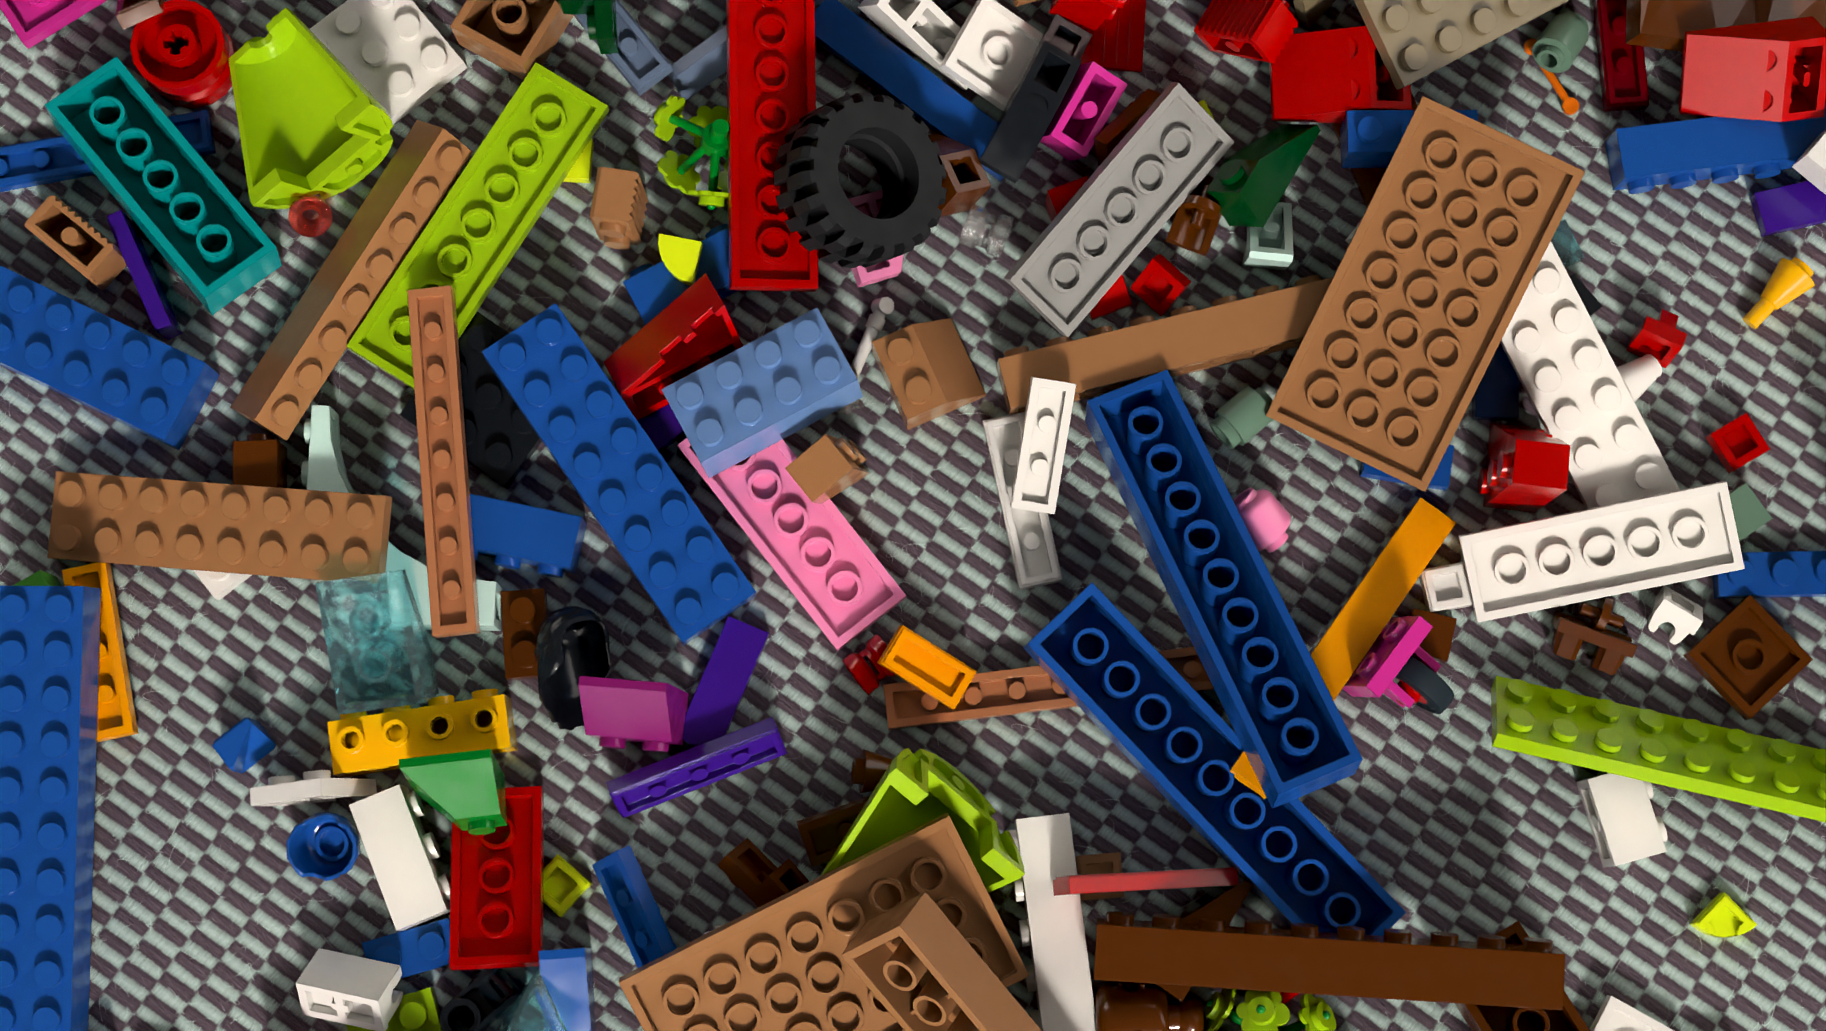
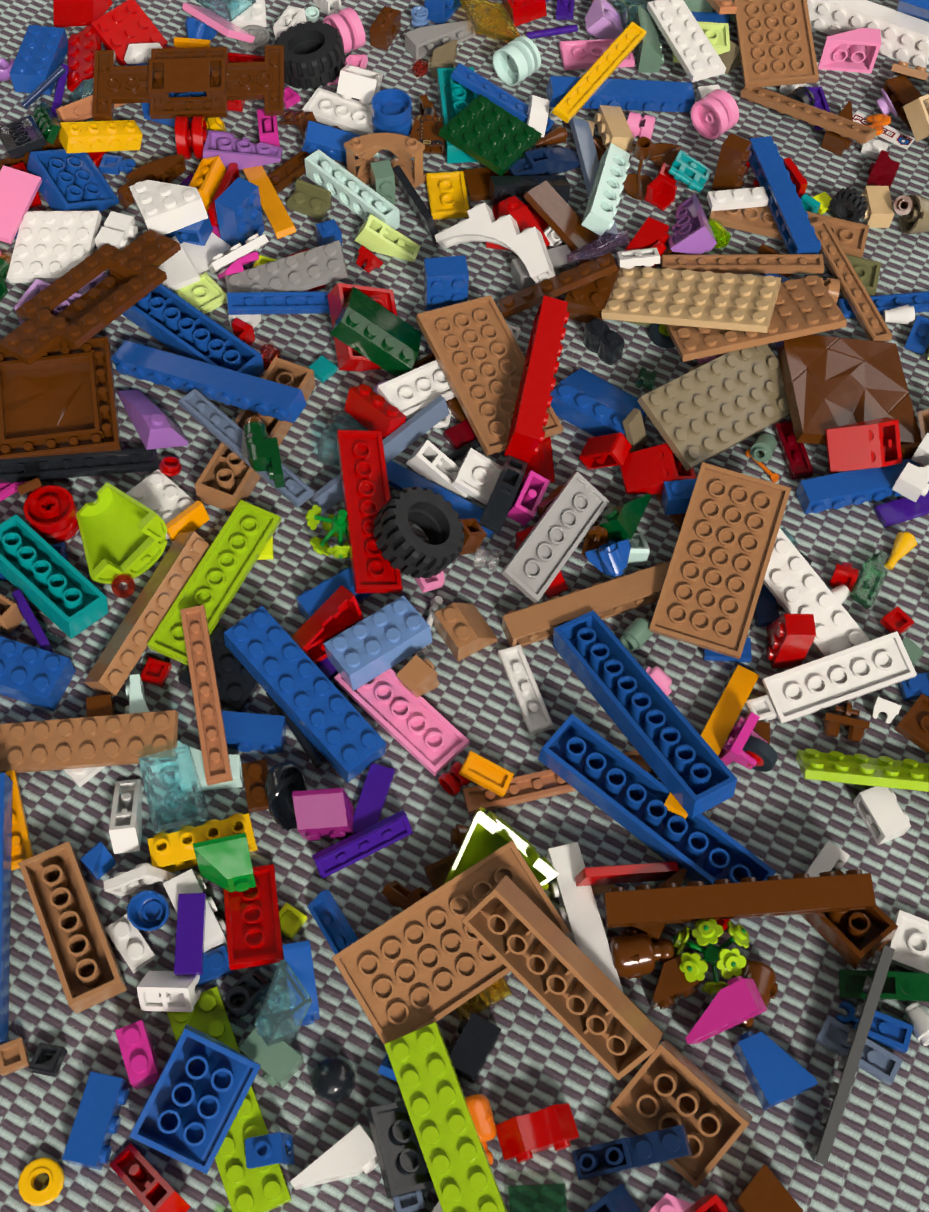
camera: 10 degrees left, 20 degrees down
(194, 859) = (72, 927): none -> medium nougat brick
(291, 896) = (130, 943): none -> white plate
(294, 669) = (126, 816): none -> white slope
(361, 393) = (155, 671): none -> red tile
(389, 902) = (190, 934): none -> dark purple tile
(434, 93) = (187, 521): none -> light orange tile
(611, 556) = (301, 738): none -> black bar
(618, 207) = (291, 562): medium nougat brick -> none
(680, 257) = (326, 581): neon yellow tile -> none
(1042, 445) = (533, 654): white plate -> none
(1160, 284) = (581, 575): red plate -> none
(1218, 259) = (611, 558): none -> blue brick
(1494, 898) = (829, 857): none -> white leg
(1706, 350) = (869, 580): none -> clear green hinge

